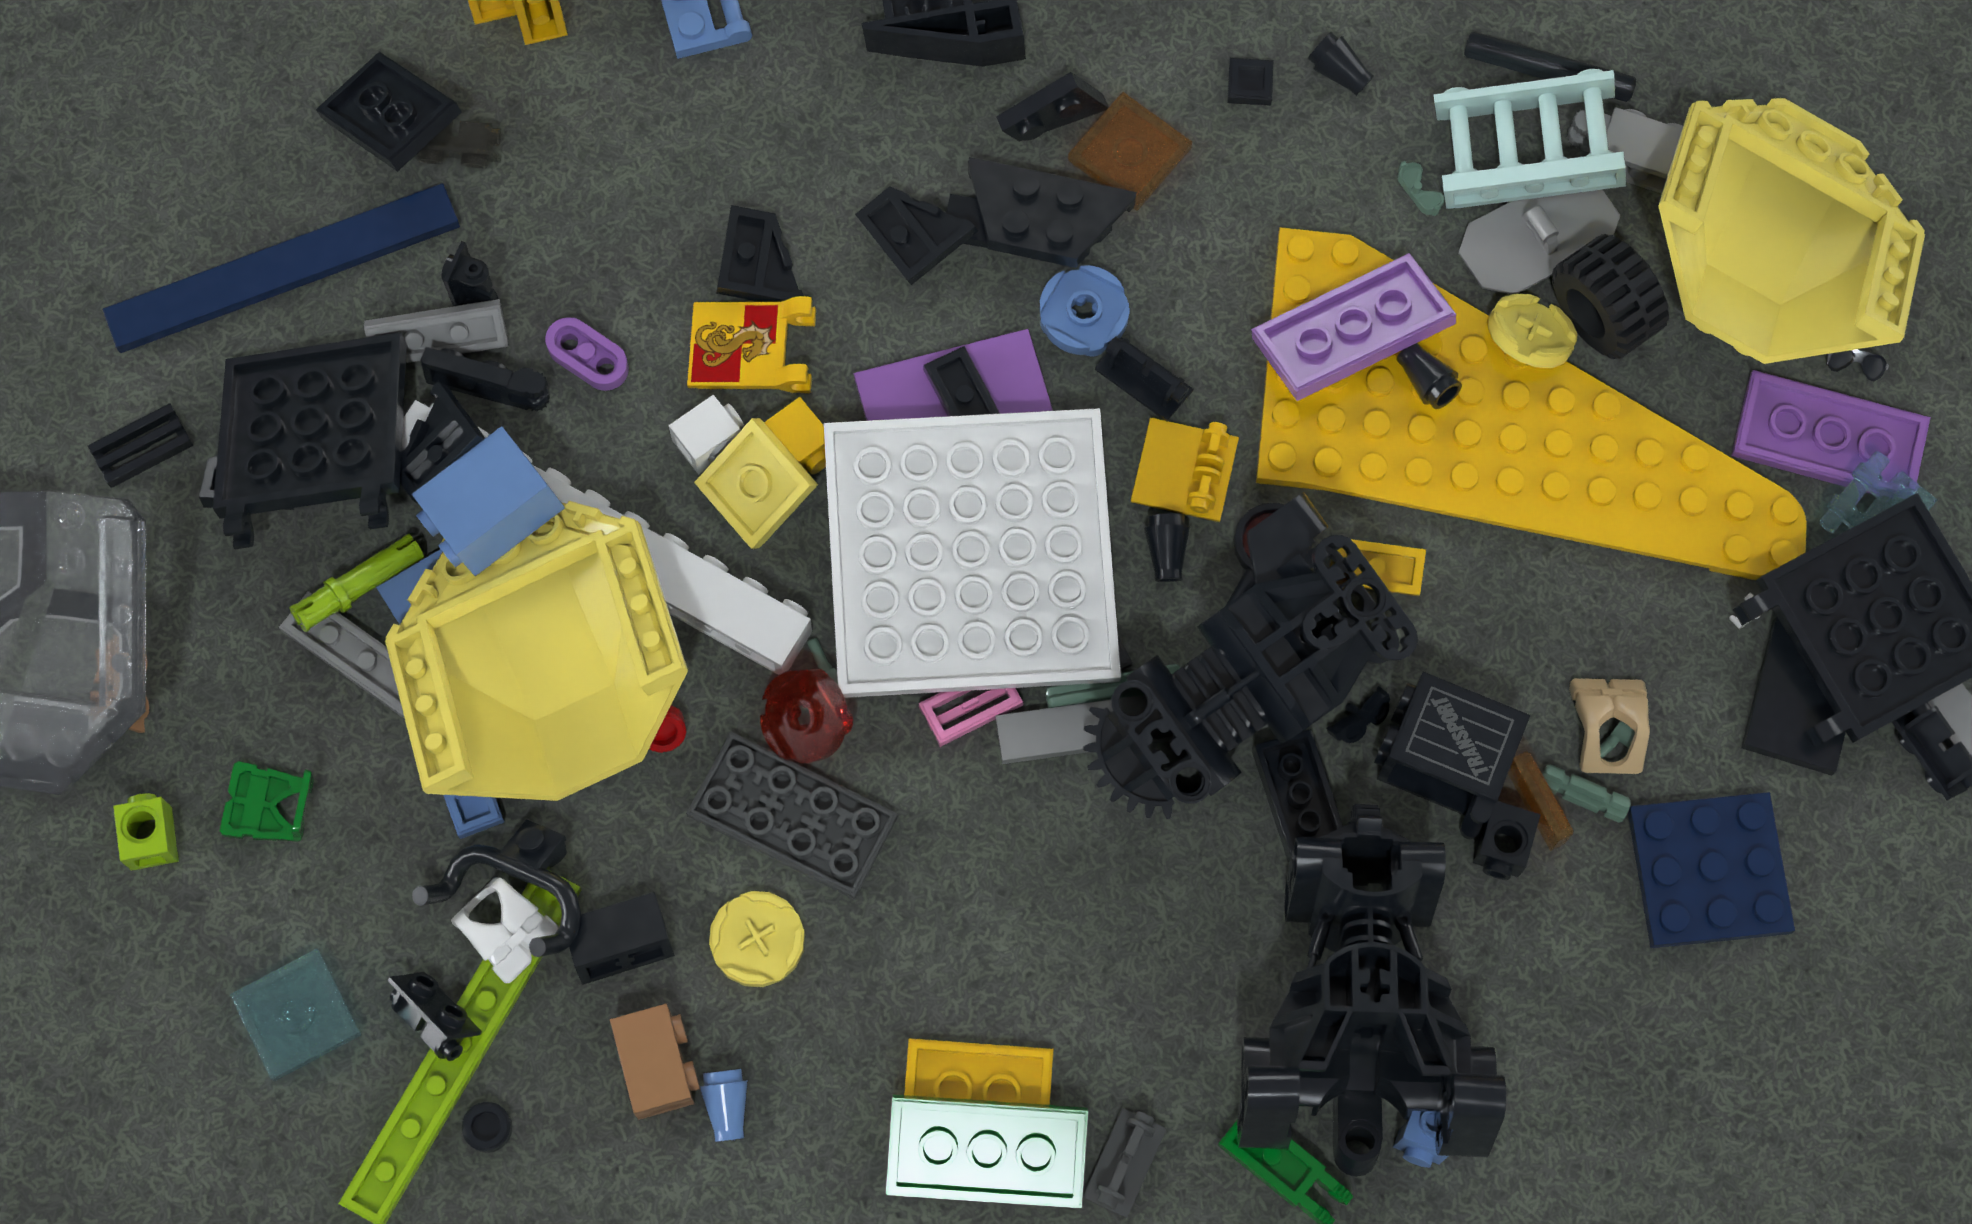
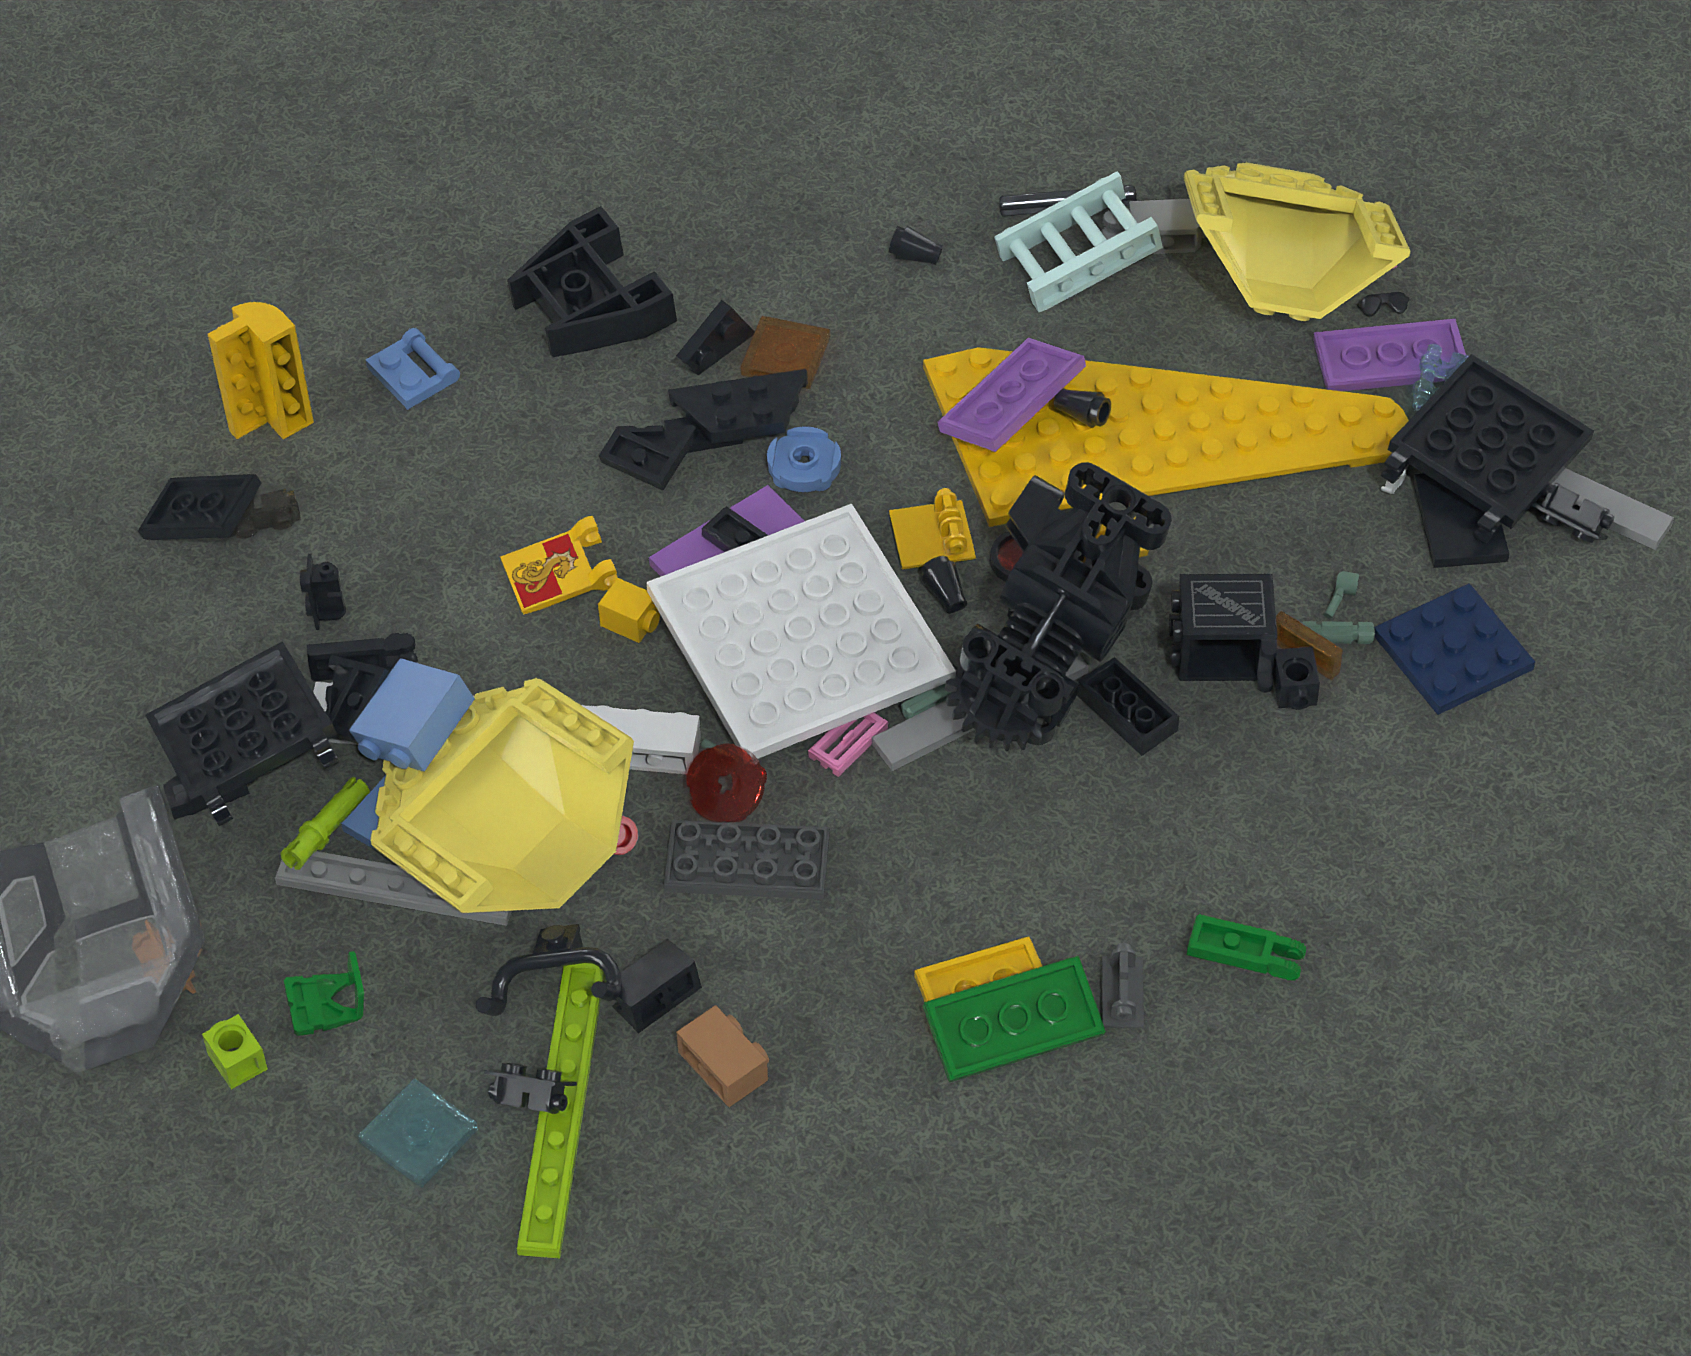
camera: 20 degrees left, 20 degrees down
(132, 431) = (97, 793): black tile -> none
(280, 268) = (157, 645): dark blue tile -> none
(458, 328) = (331, 625): light grey tile -> none
(473, 813) = (492, 944): medium blue tile -> none
(487, 1127) = (610, 1154): black tile -> none
(505, 942) = (569, 1014): white piece -> none
(588, 355) = (435, 613): medium lavender plate -> none
(705, 432) = (554, 632): white brick -> none
(725, 1102) = (793, 1063): medium blue cone -> none
(754, 259) = (533, 509): black wing -> none
(755, 483) = (610, 648): light yellow tile -> none
(757, 939) = (761, 950): light yellow tile -> none
(1143, 378) = (884, 488): black hinge -> none
(1250, 81) = (853, 281): black tile -> none
(1354, 726) = (1144, 649): black piece -> none
(1372, 1013) = (1257, 799): black connector -> none
(1410, 179) = (1002, 301): sand green piece -> none
(1418, 1139) = (1340, 880): medium blue bracket -> none
(1531, 236) = (1115, 305): light grey shield -> none
(1532, 331) = (1147, 360): light yellow tile -> none
(1599, 702) = (1318, 569): tan piece -> none
(1610, 296) = (1188, 312): black tyre -> none

